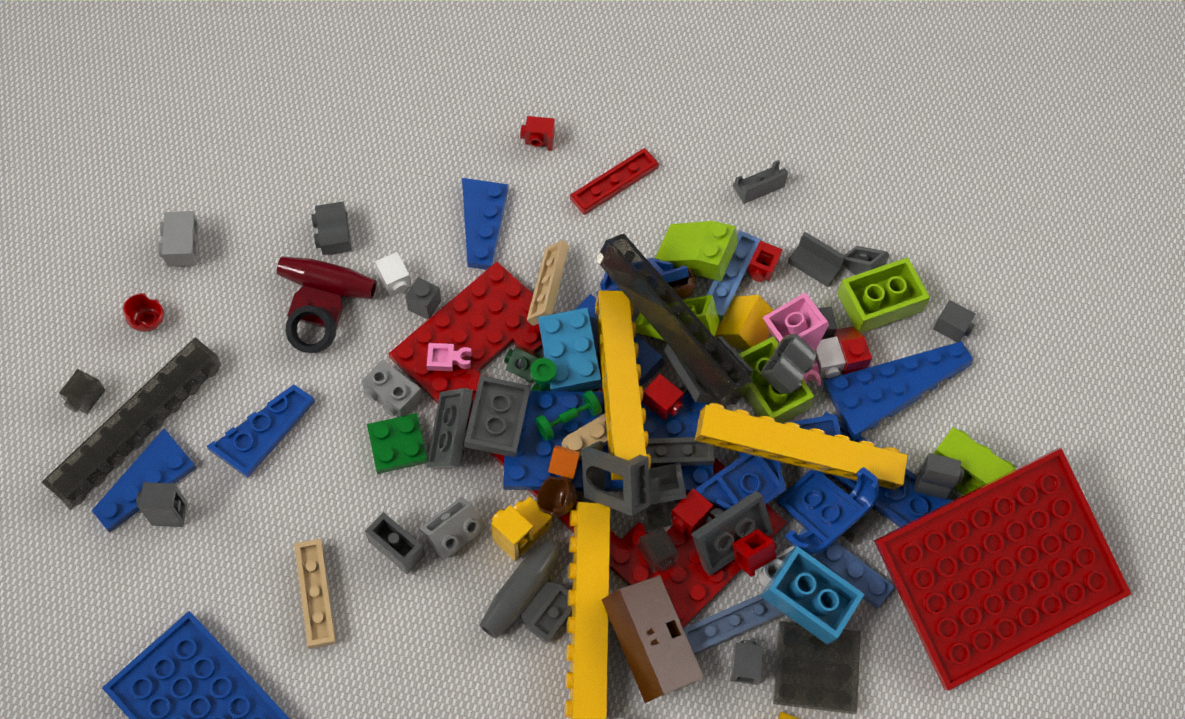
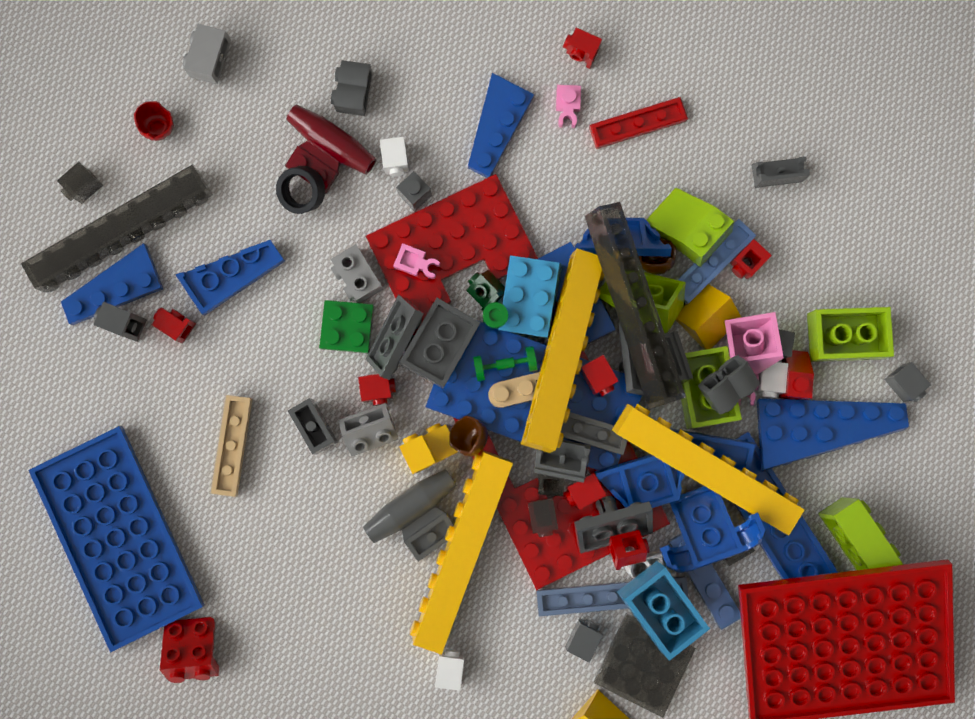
camera: 20 degrees right, 20 degrees up
(218, 494) = (172, 324): none -> red brick
(447, 487) = (376, 389): none -> red brick
(542, 182) = (568, 100): none -> bright pink plate
(548, 281) = (535, 215): tan plate -> none
(564, 462) = (485, 408): orange tile -> none
(635, 479) = (539, 456): dark grey panel -> none
(652, 638) = (507, 597): reddish brown brick -> none
(817, 259) = (801, 273): dark grey panel -> none
(864, 259) = (846, 290): dark grey slope -> none
(938, 476) = (825, 539): dark grey brick -> none

